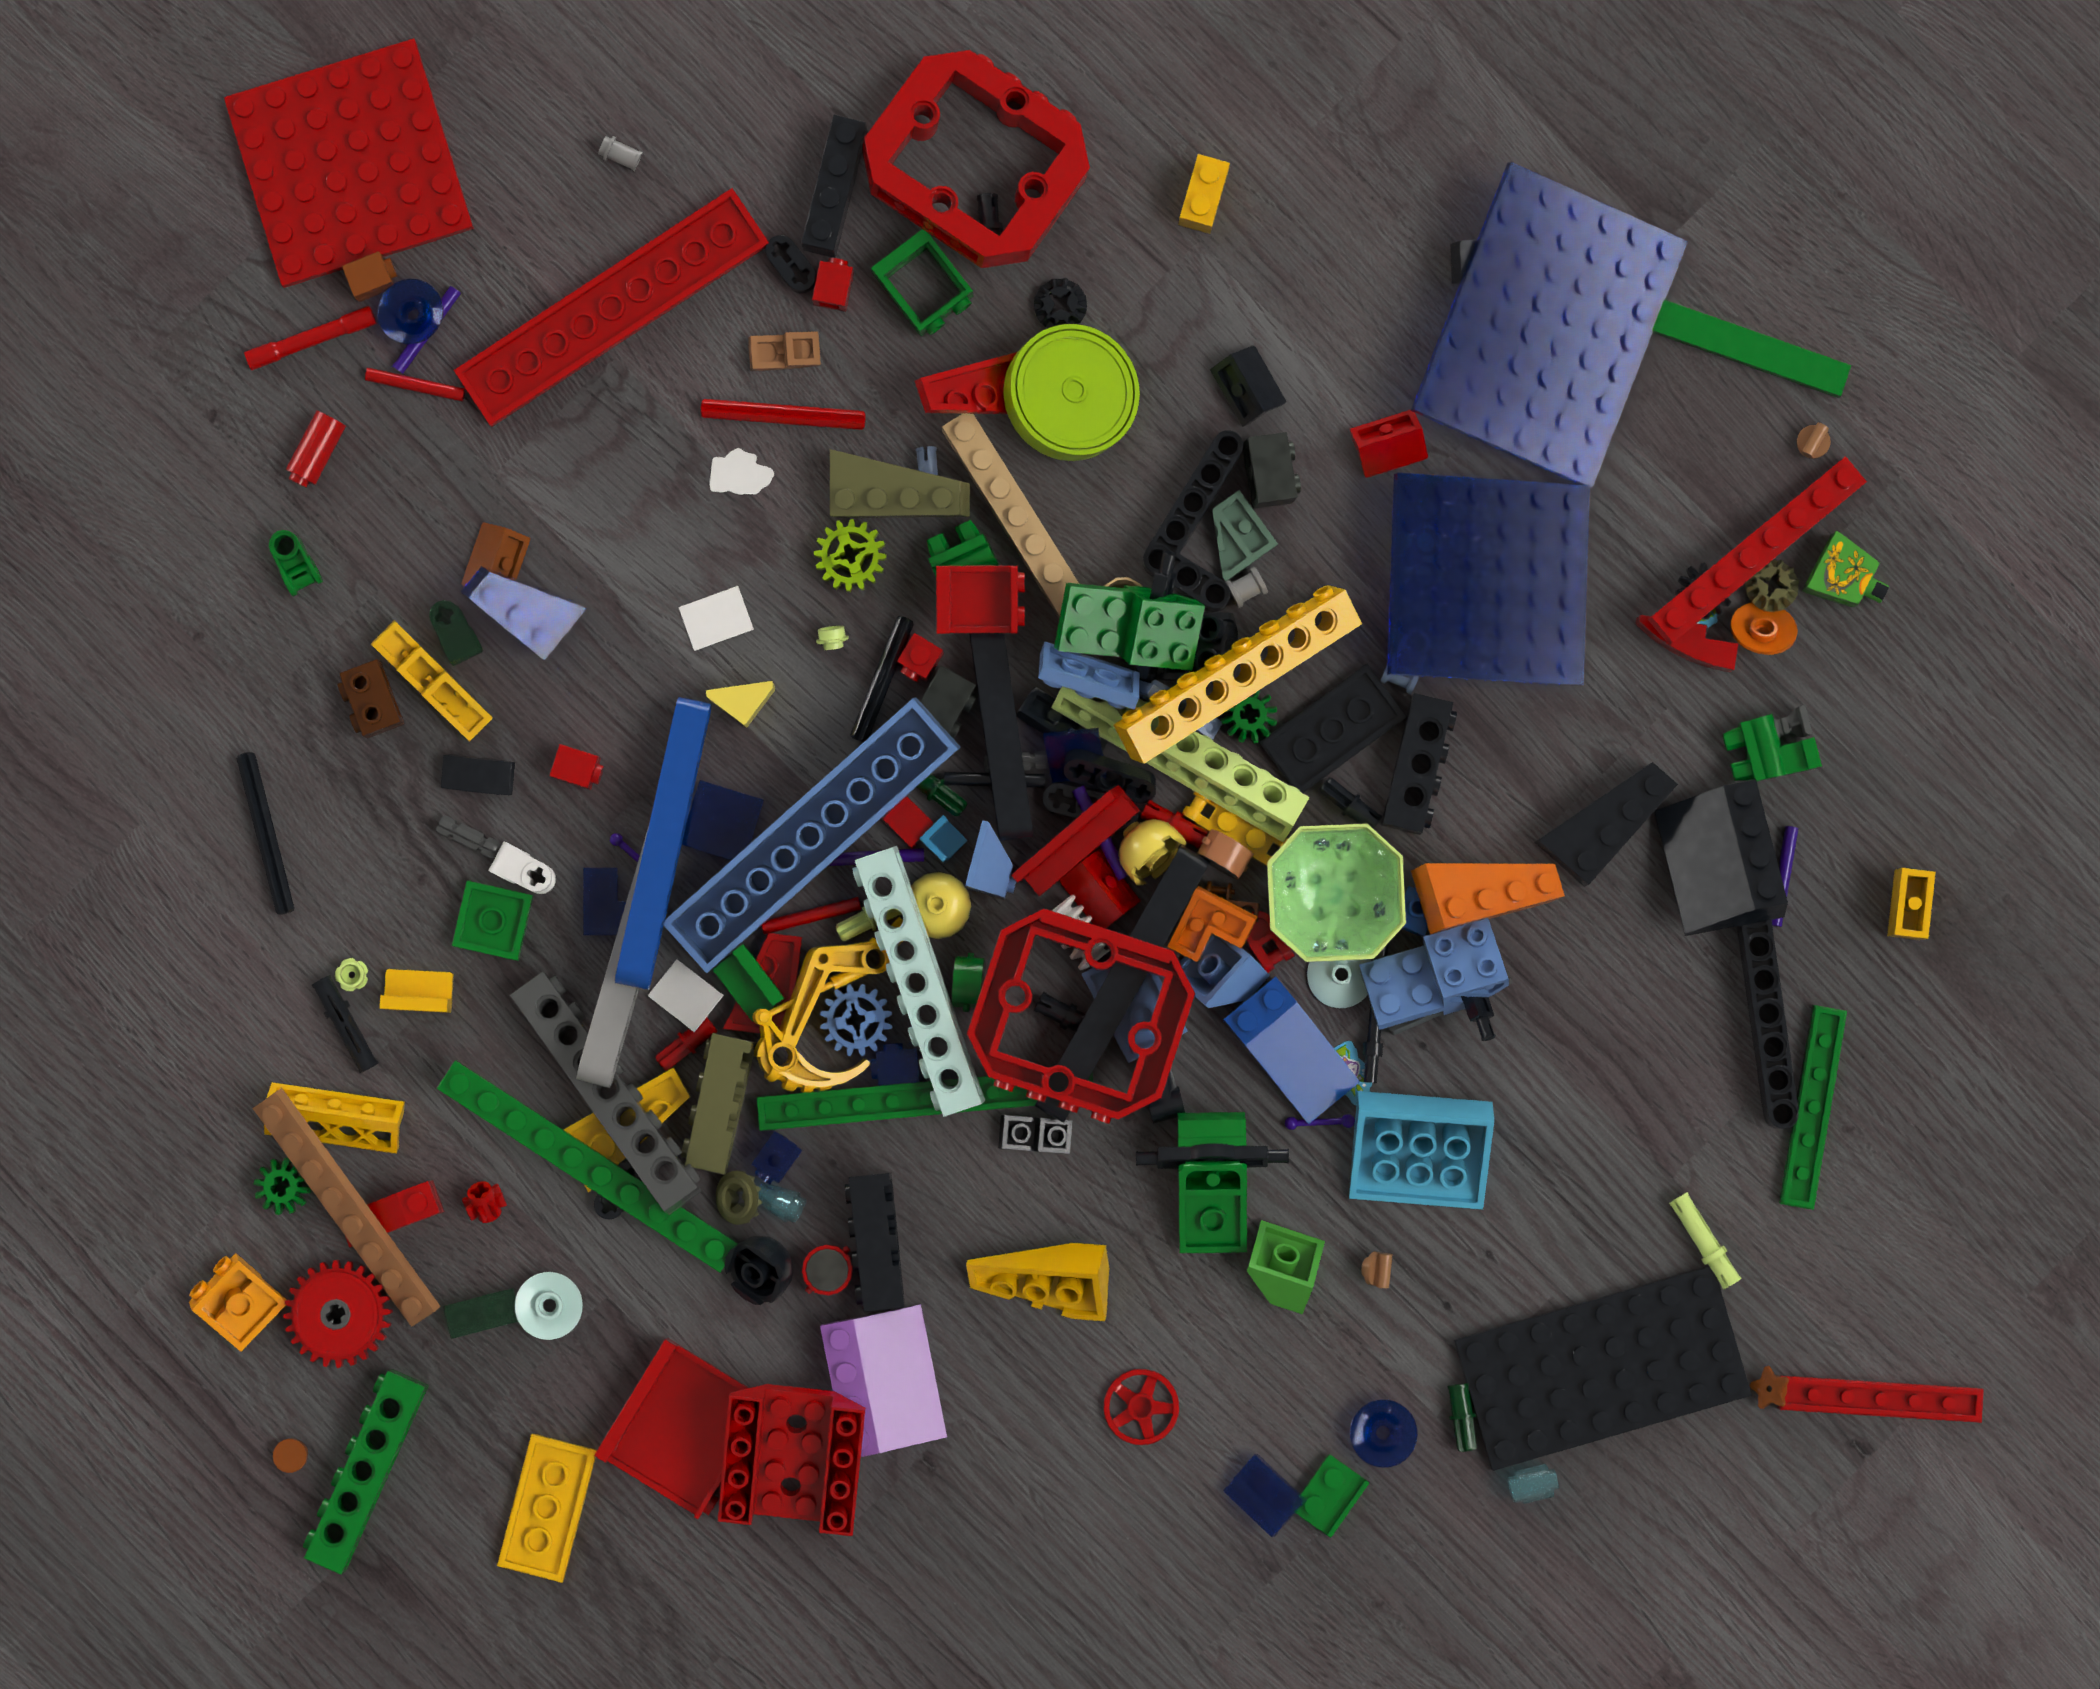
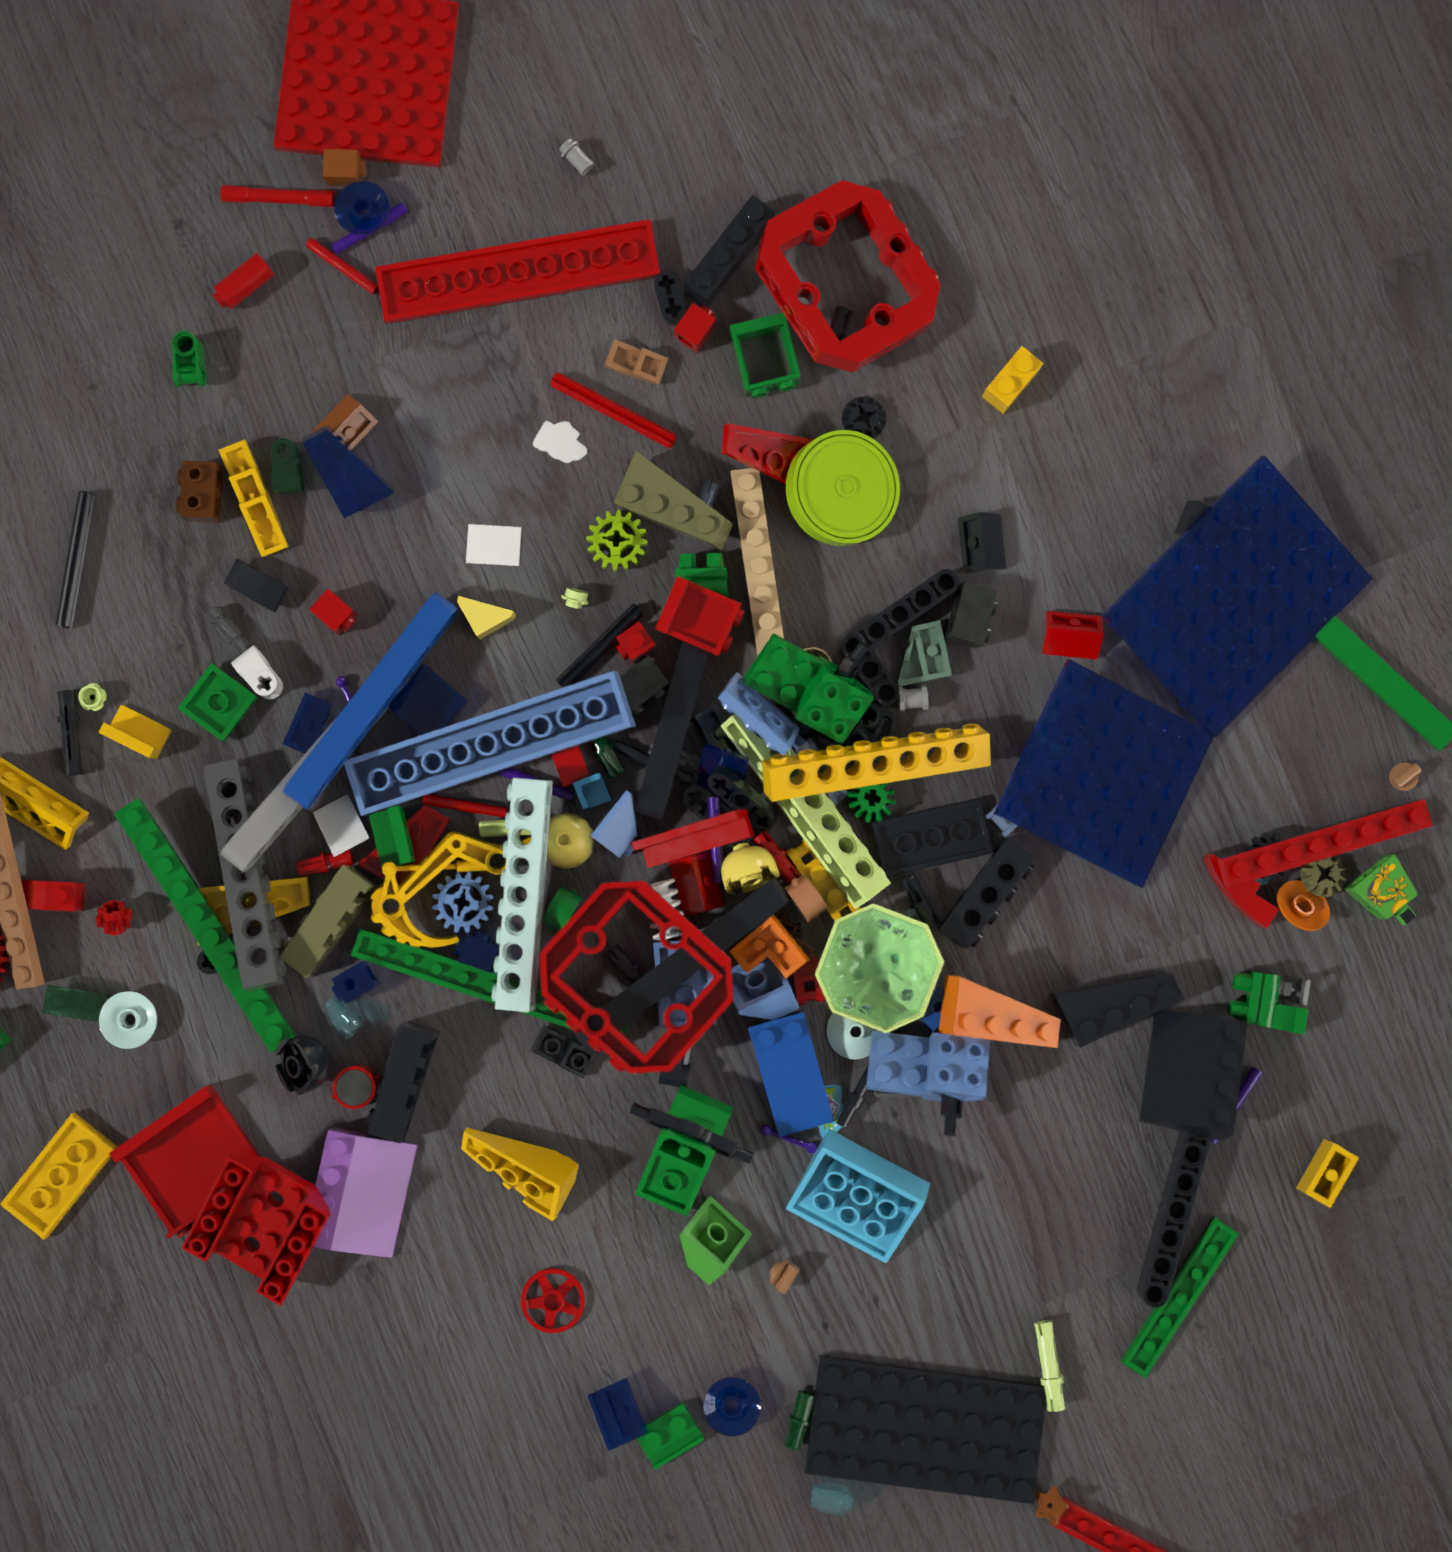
camera: 25 degrees right, 0 degrees up
(728, 1198) = (304, 996): olive gear -> none

